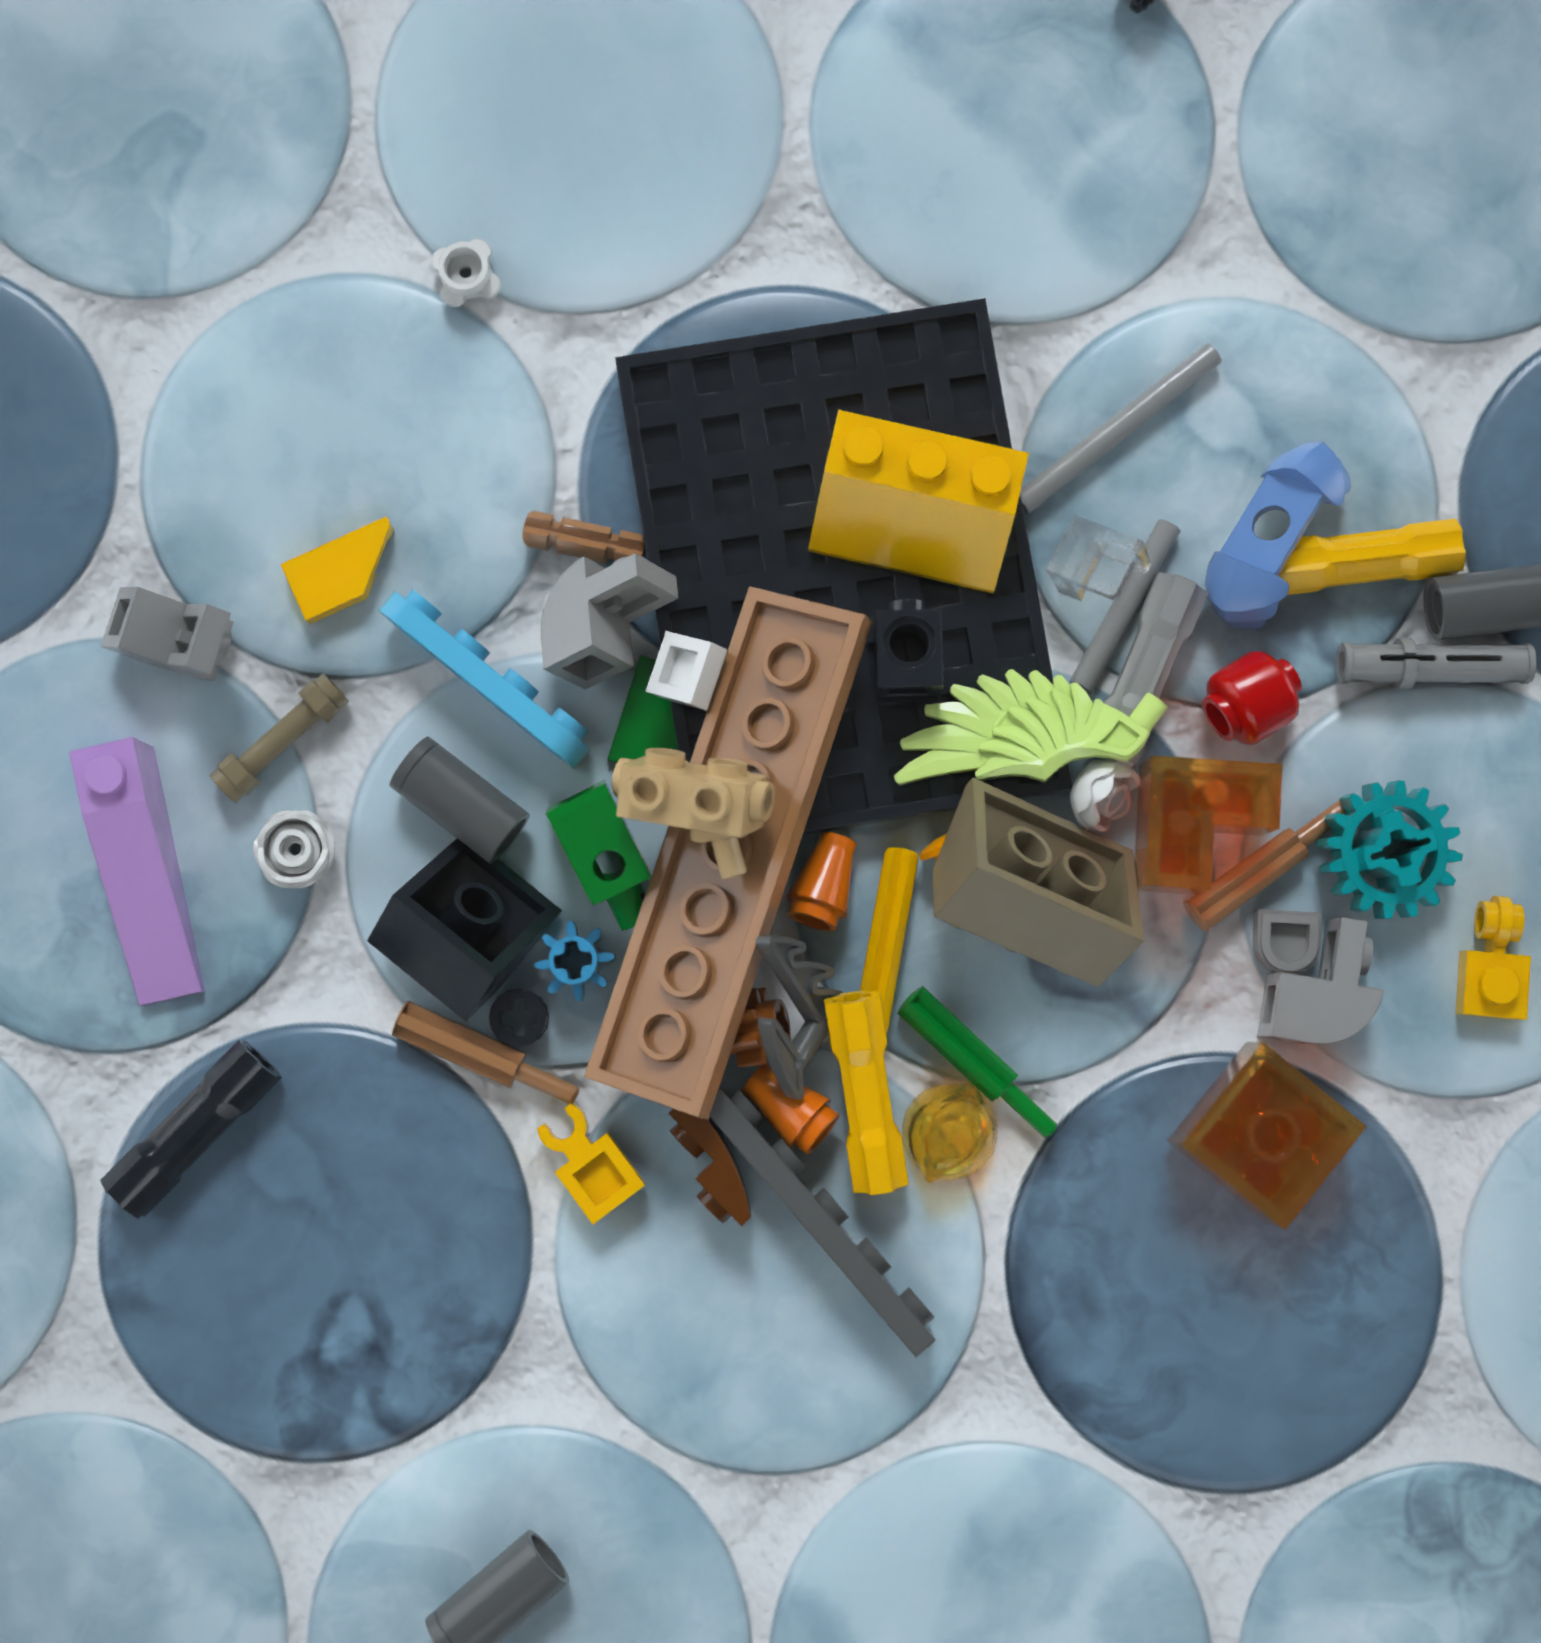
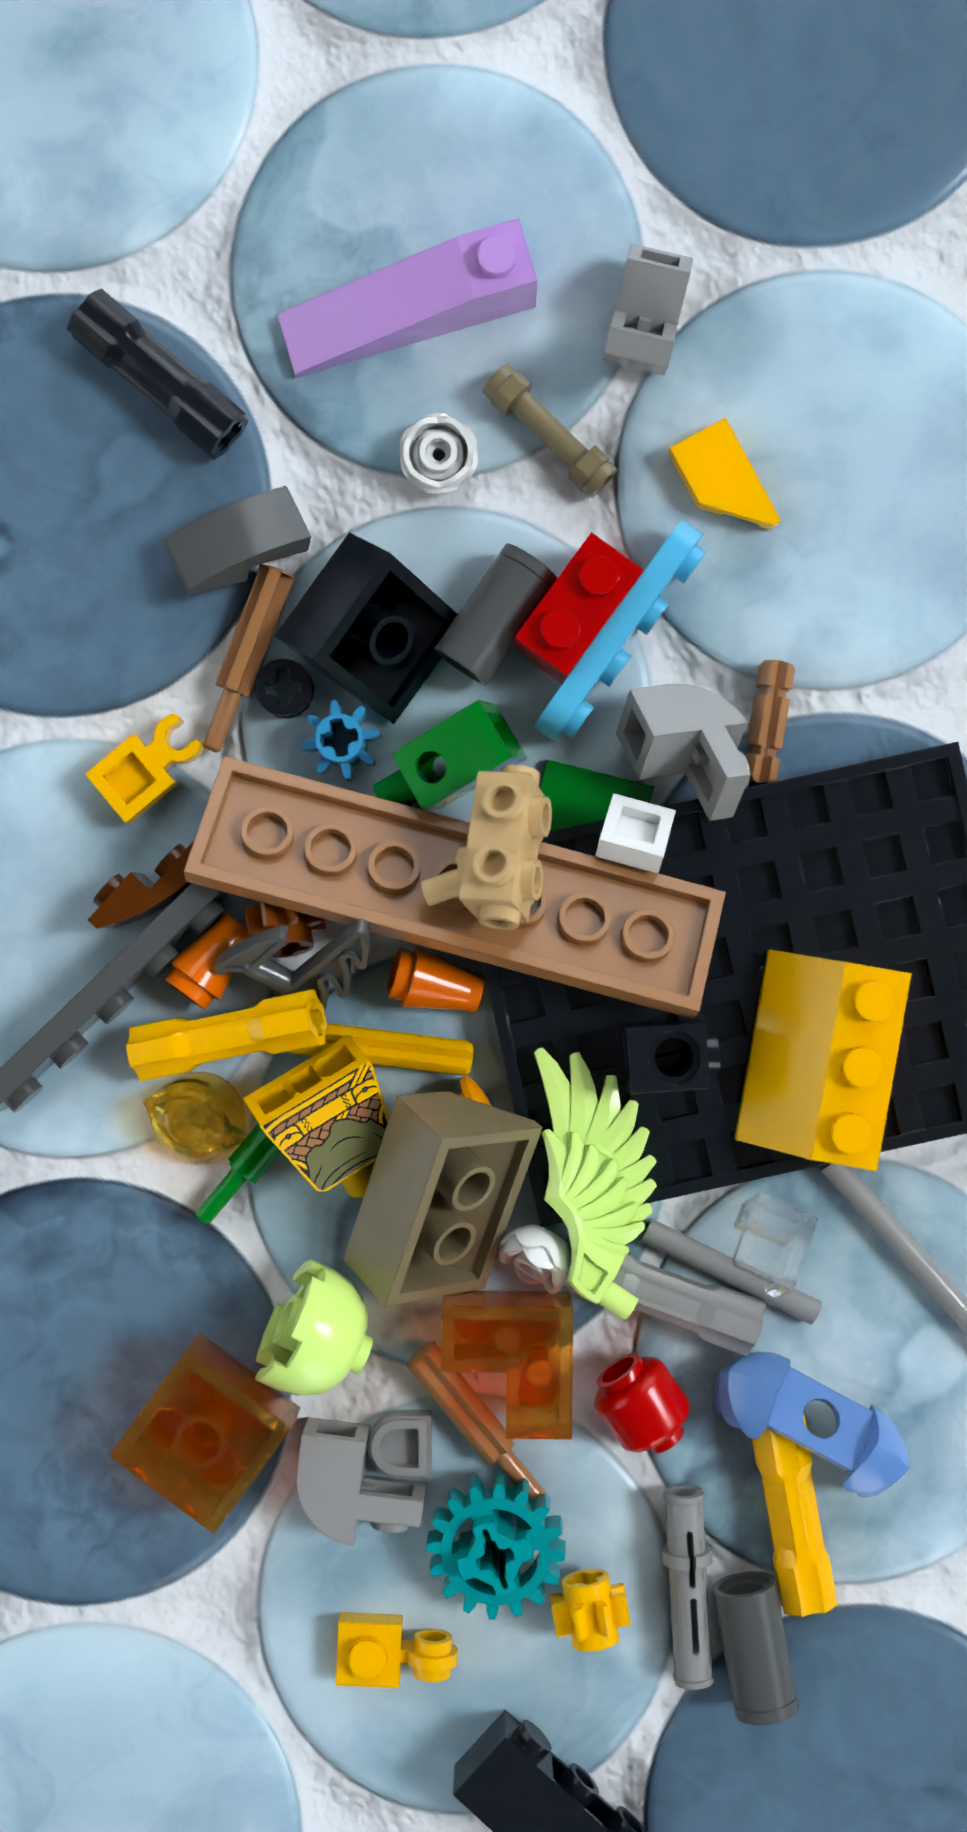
camera: 90 degrees right, 5 degrees up
(365, 1061) = (229, 540): none -> dark grey slope
(460, 717) = (576, 608): none -> red brick
(953, 992) = (326, 1117): none -> torso
(1171, 1017) = (315, 1335): none -> yellowish green cylinder
(1455, 760) = (590, 1610): none -> yellow gear

